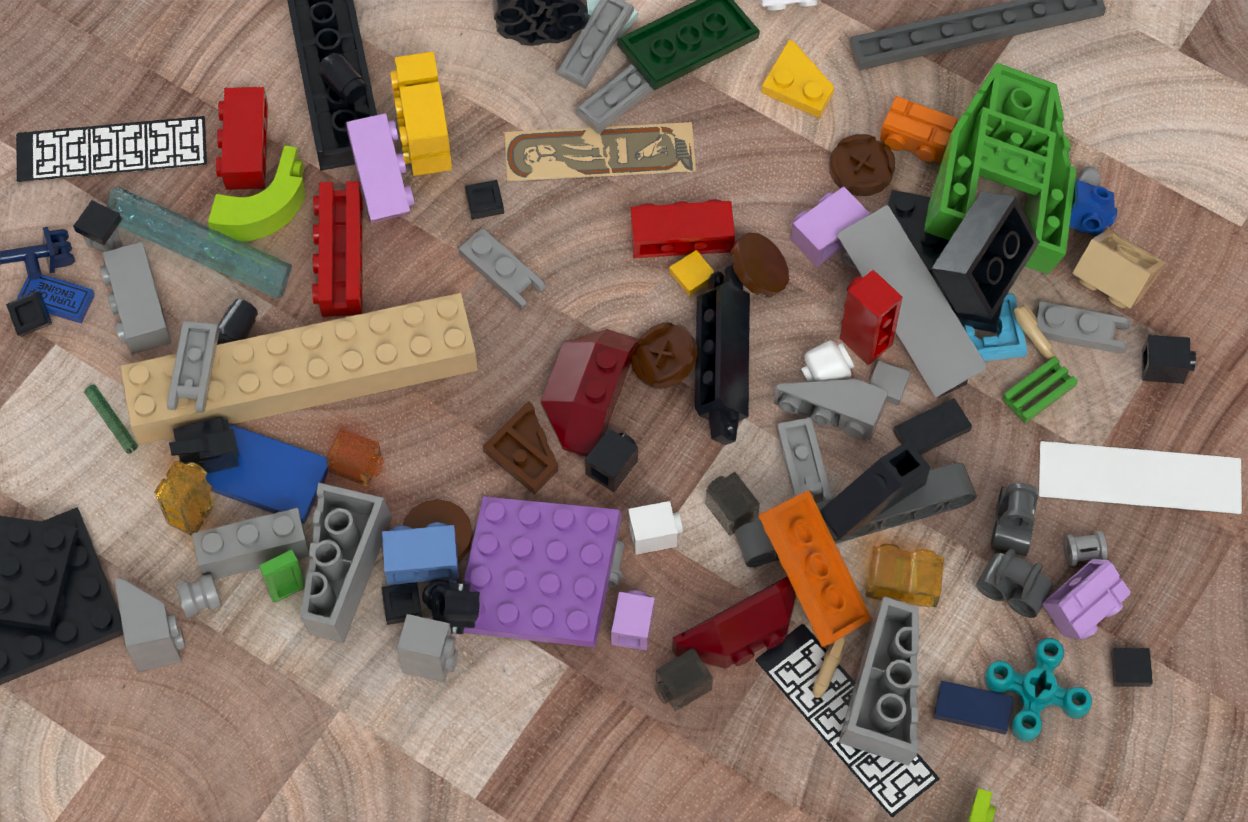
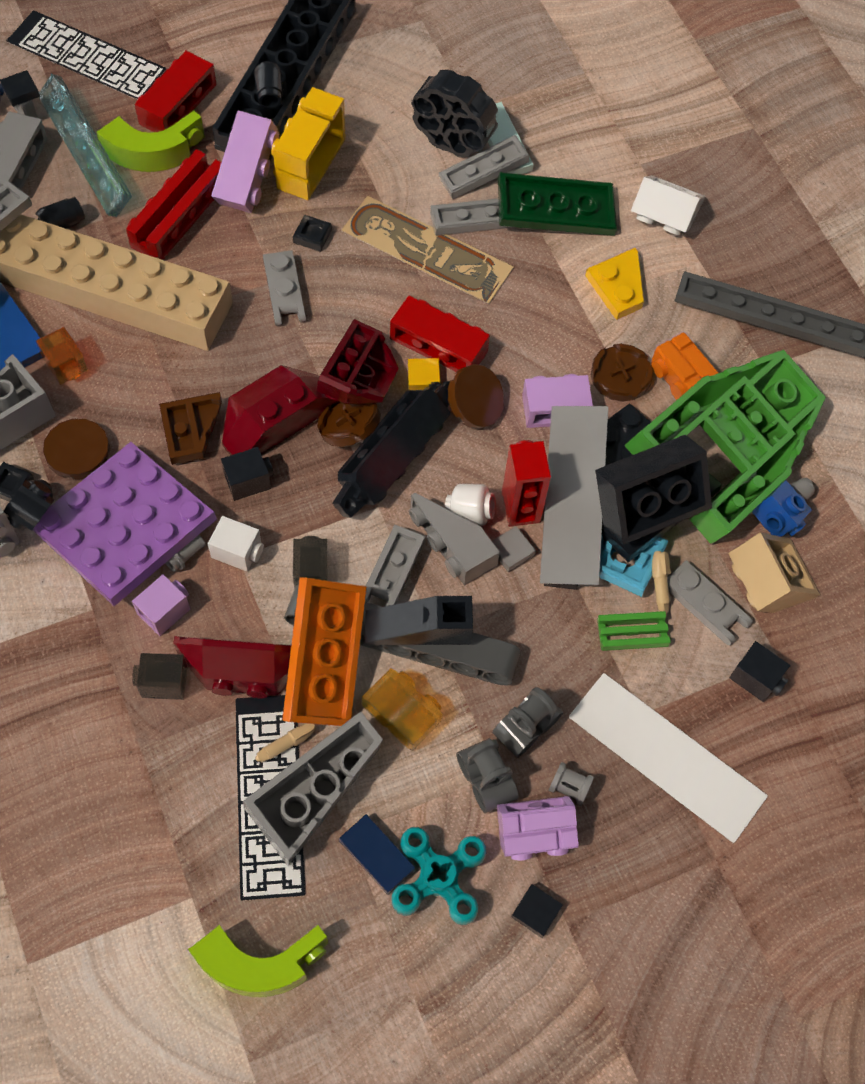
camera: 30 degrees right, 0 degrees up
(420, 553) = (43, 452): medium blue brick -> none
(638, 301) = (359, 367): none -> dark red wedge
(934, 427) = (520, 606): black tile -> none

